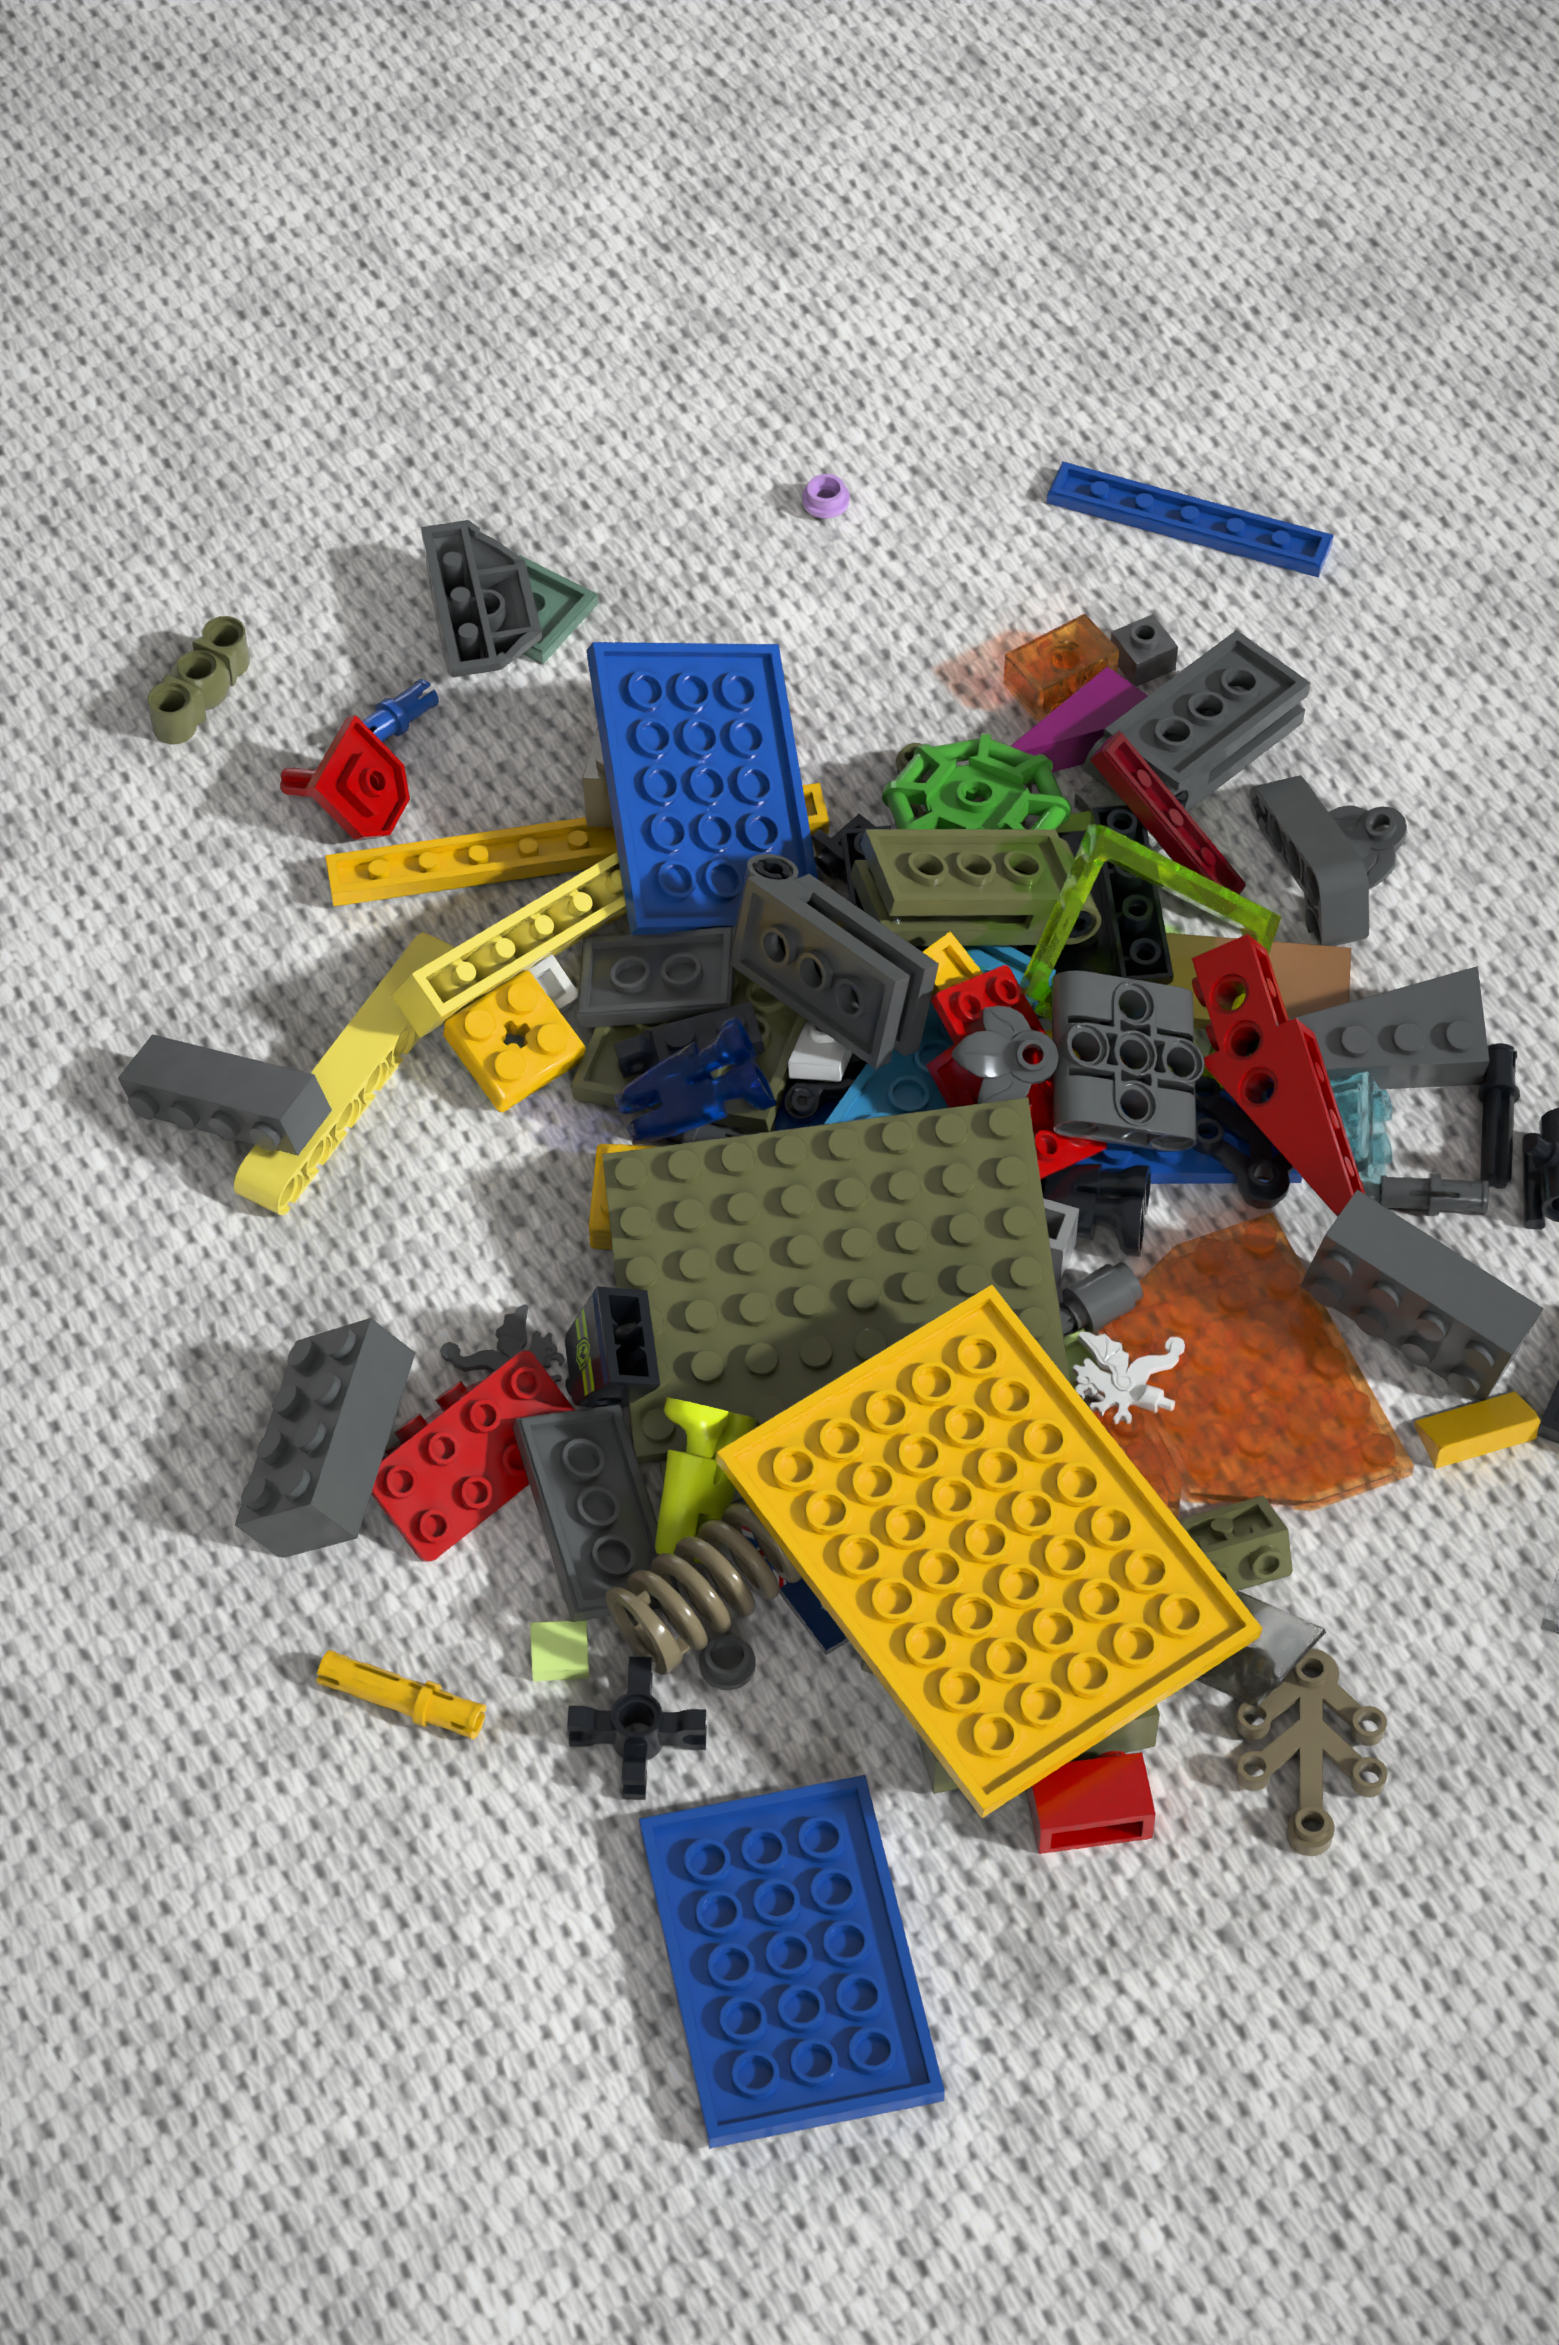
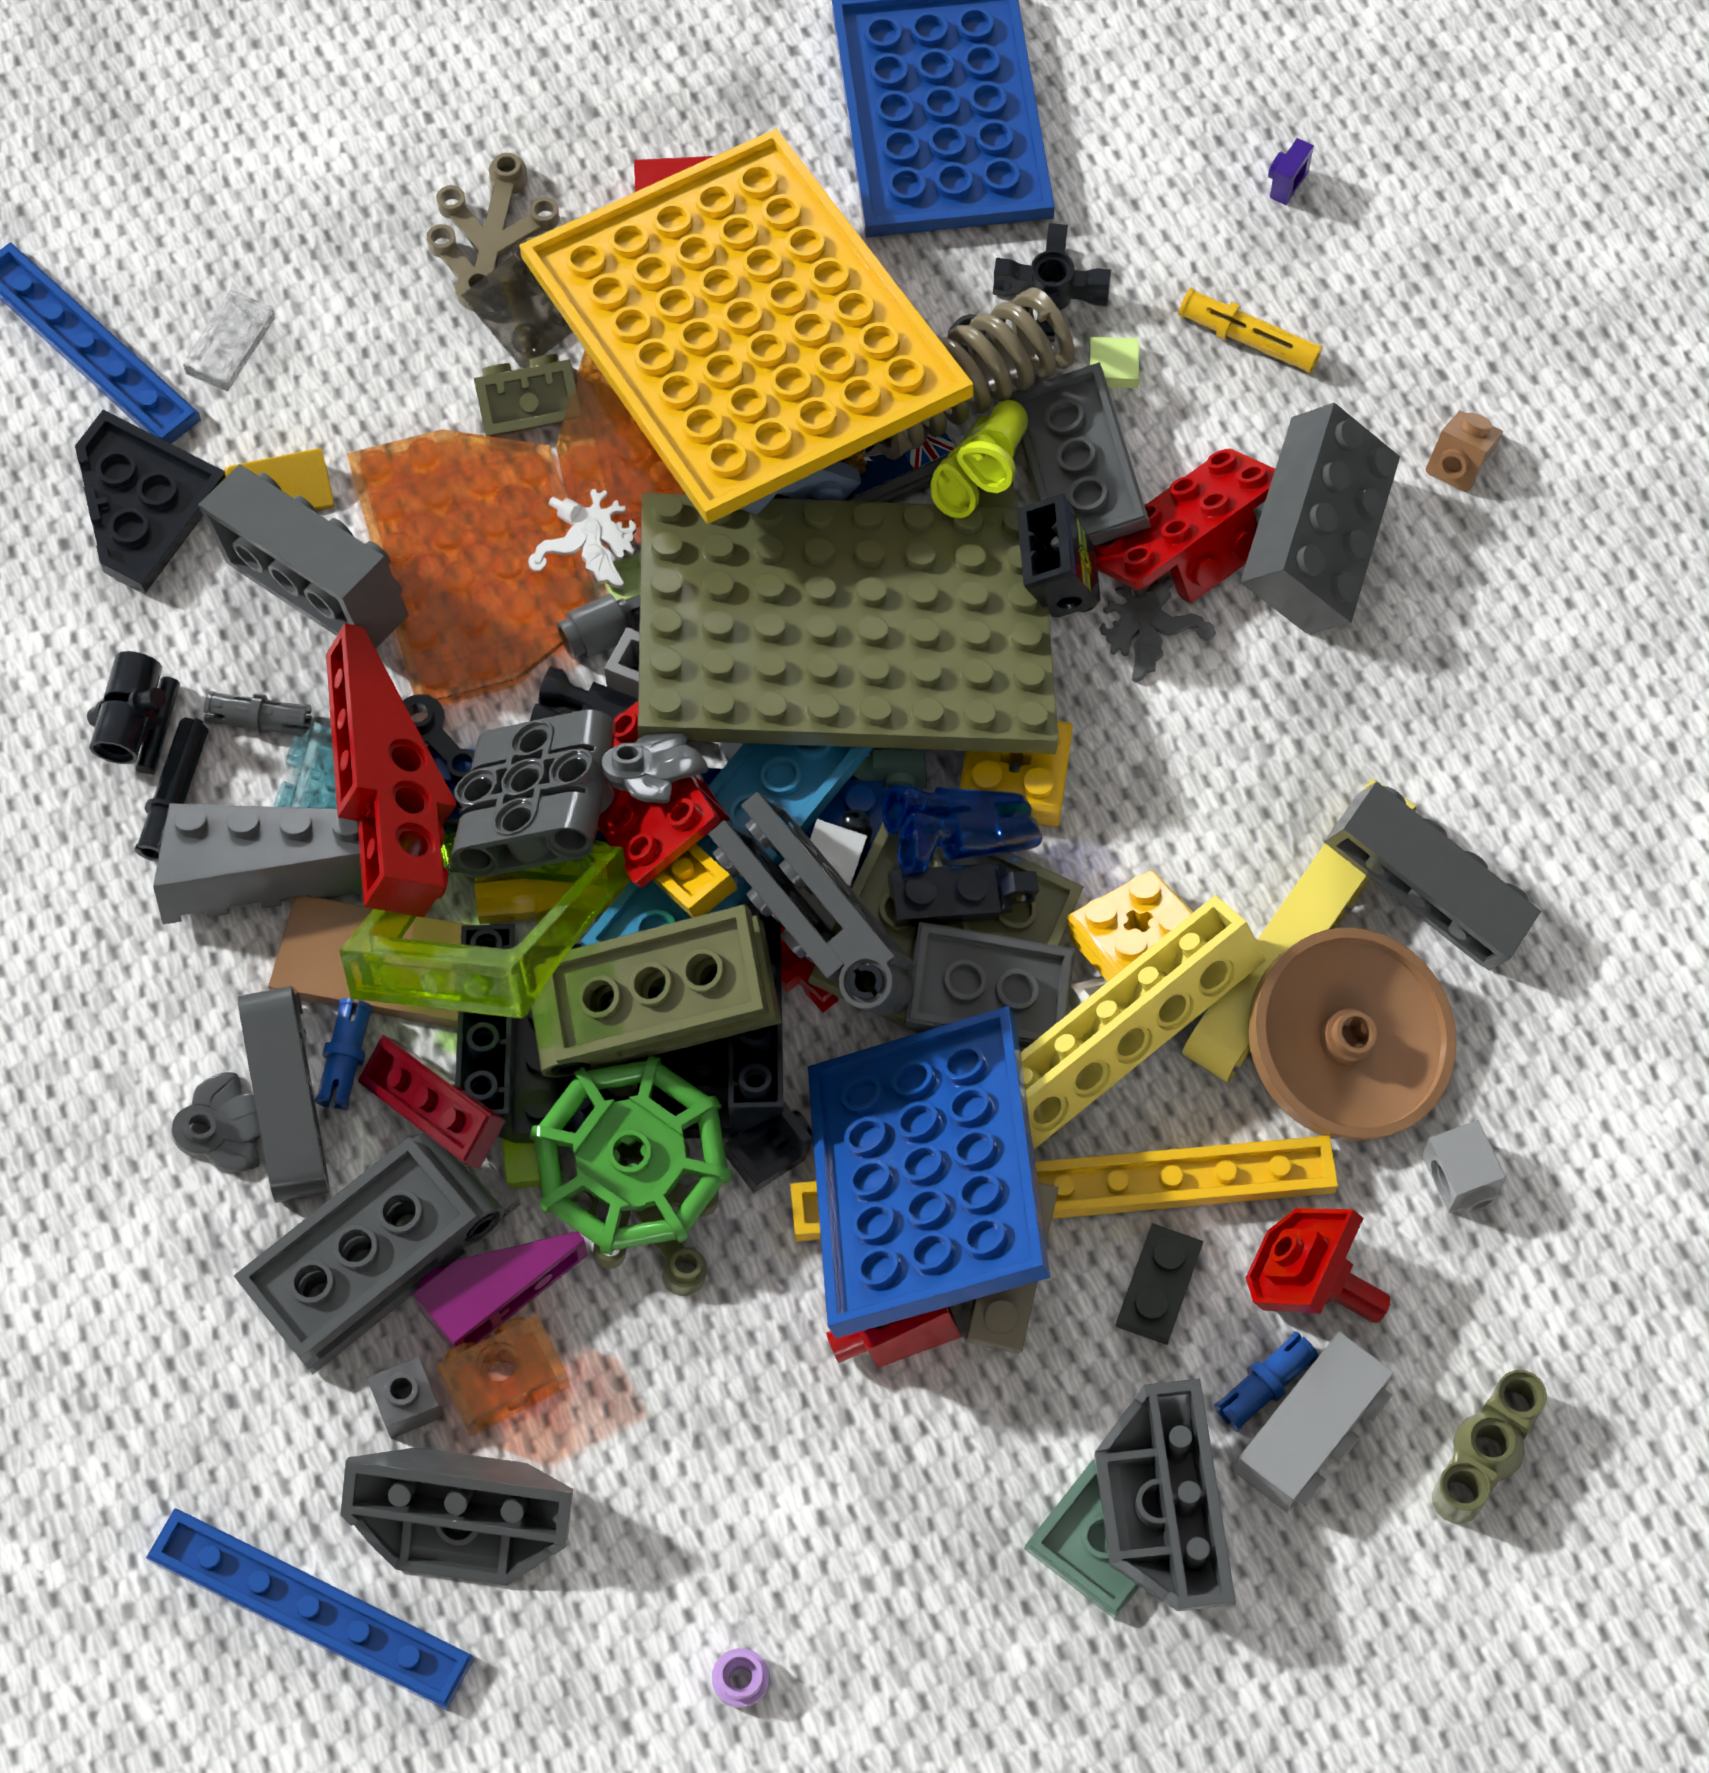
camera: 175 degrees left, 10 degrees up
(156, 1573) = (1463, 449): none -> medium nougat bracket
(207, 882) = (1464, 1167): none -> light grey brick
(308, 966) = (1352, 1034): none -> medium nougat dish
(351, 1895) = (1290, 170): none -> dark purple plate
(355, 677) = (1315, 1424): none -> light grey brick
(487, 787) = (1159, 1284): none -> pearl dark grey plate
(1078, 573) = (456, 1513): none -> dark grey wedge
(1266, 885) = (343, 1054): none -> blue pin

